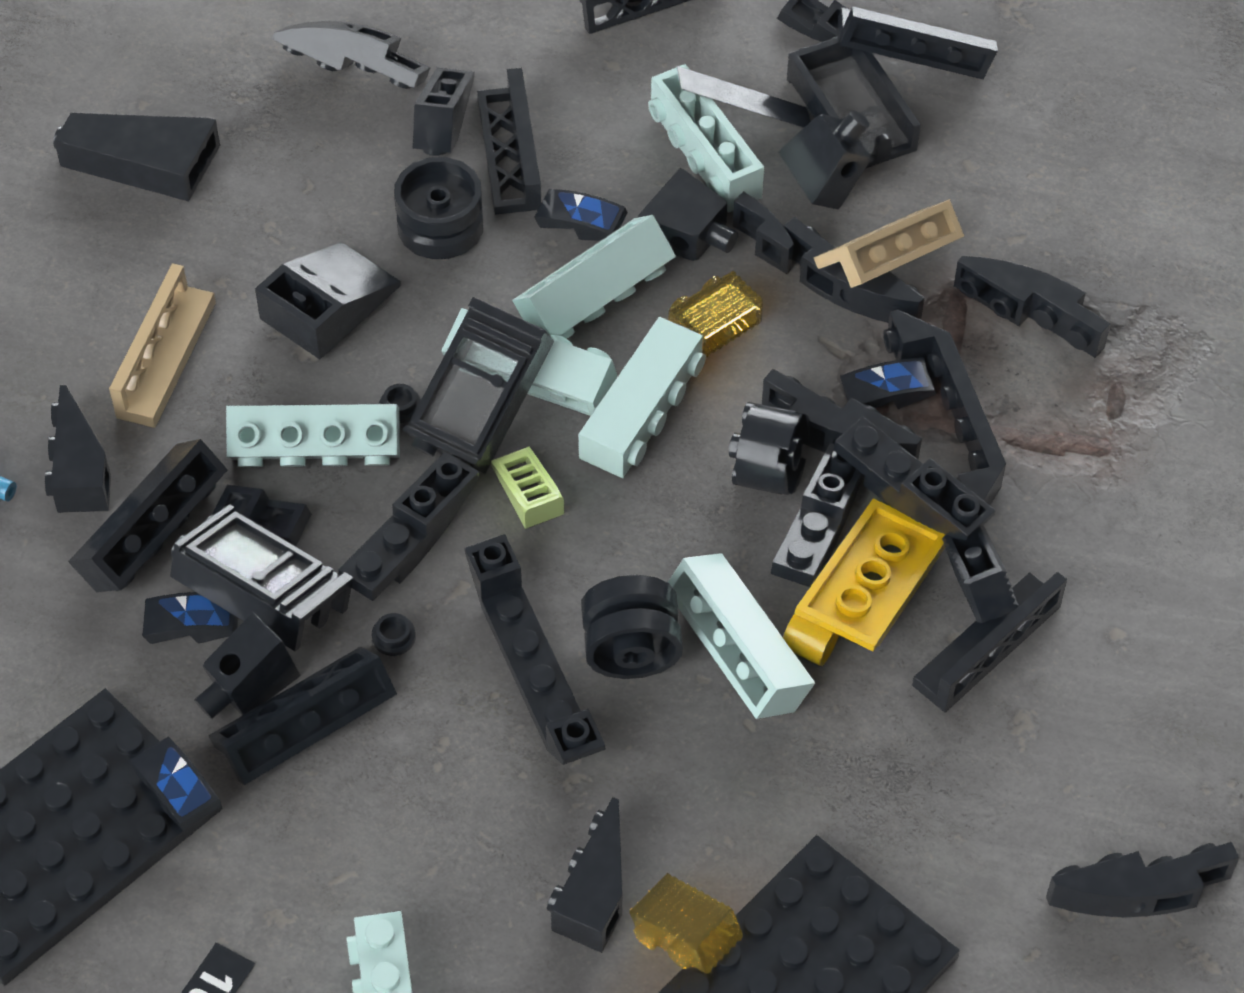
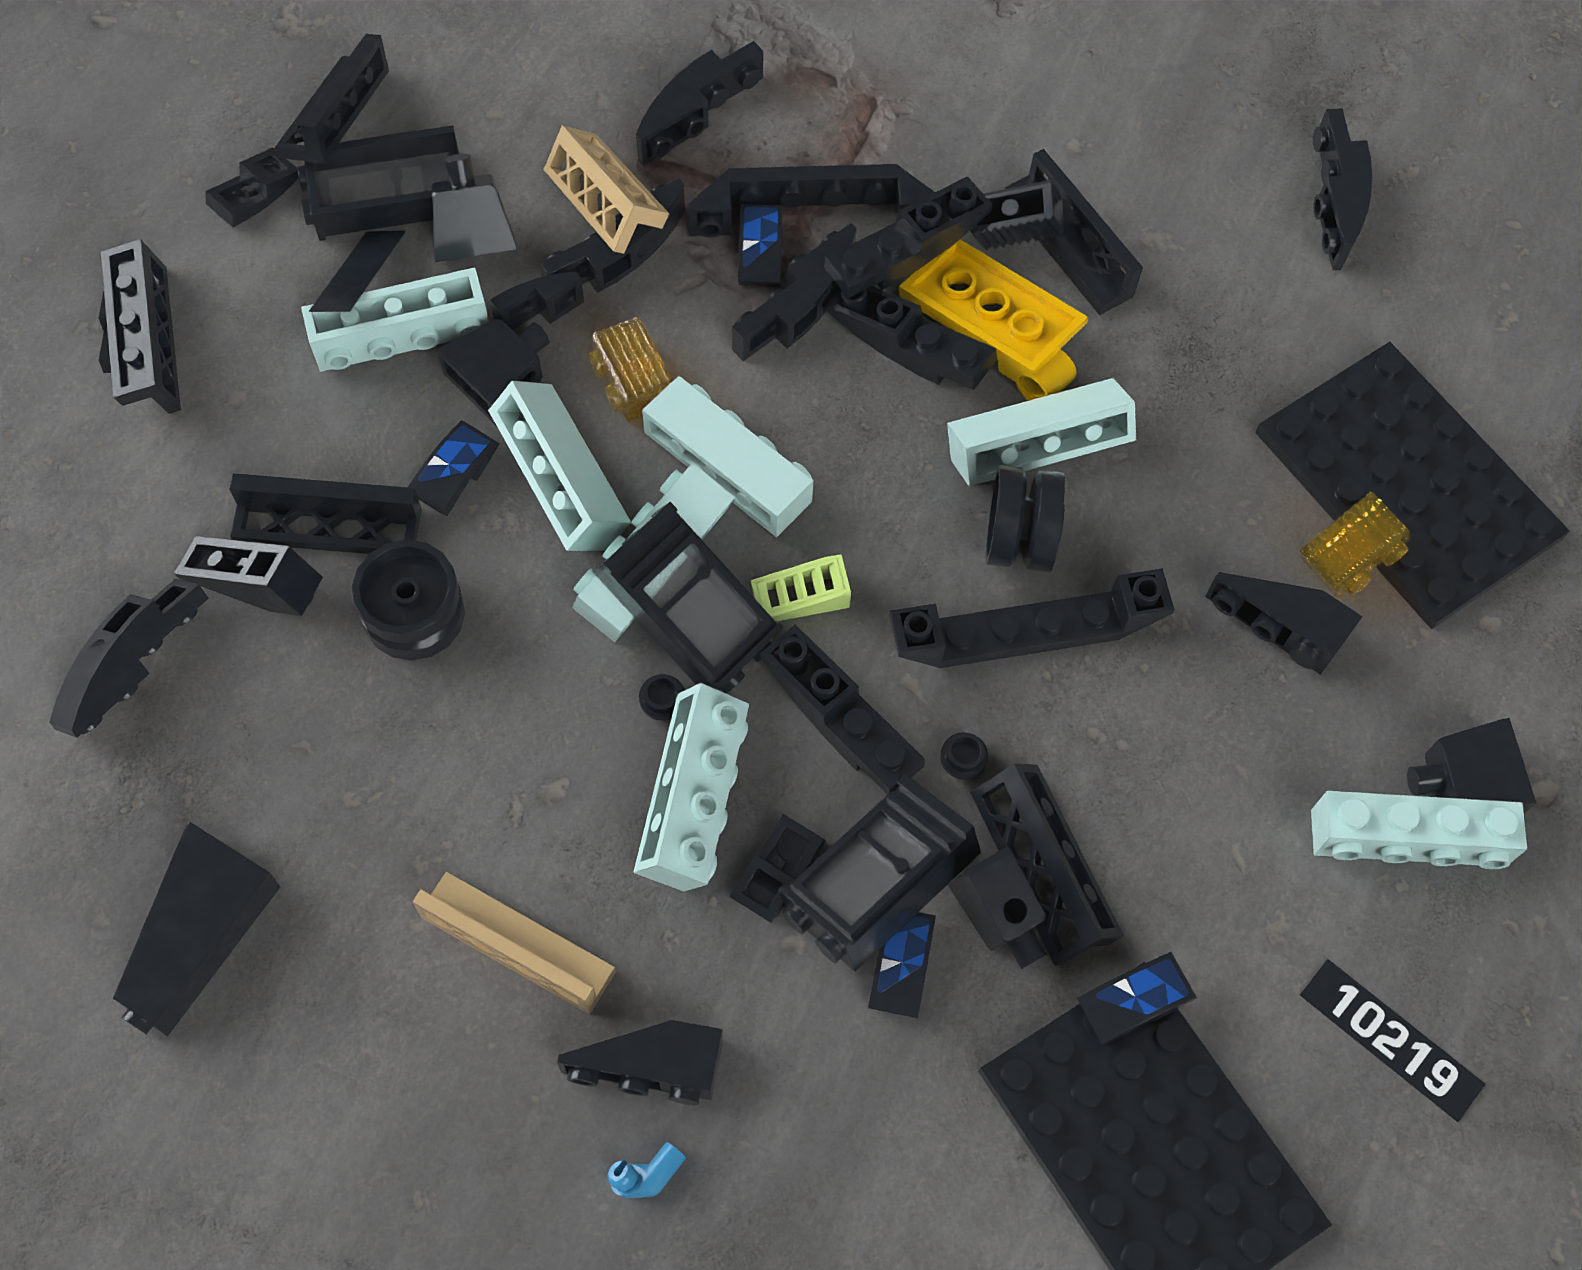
camera: 80 degrees left, 10 degrees up
(148, 516) = (767, 984): black brick -> none
(323, 296) = (495, 745): black slope -> none
(769, 448) = (830, 352): black brick -> none

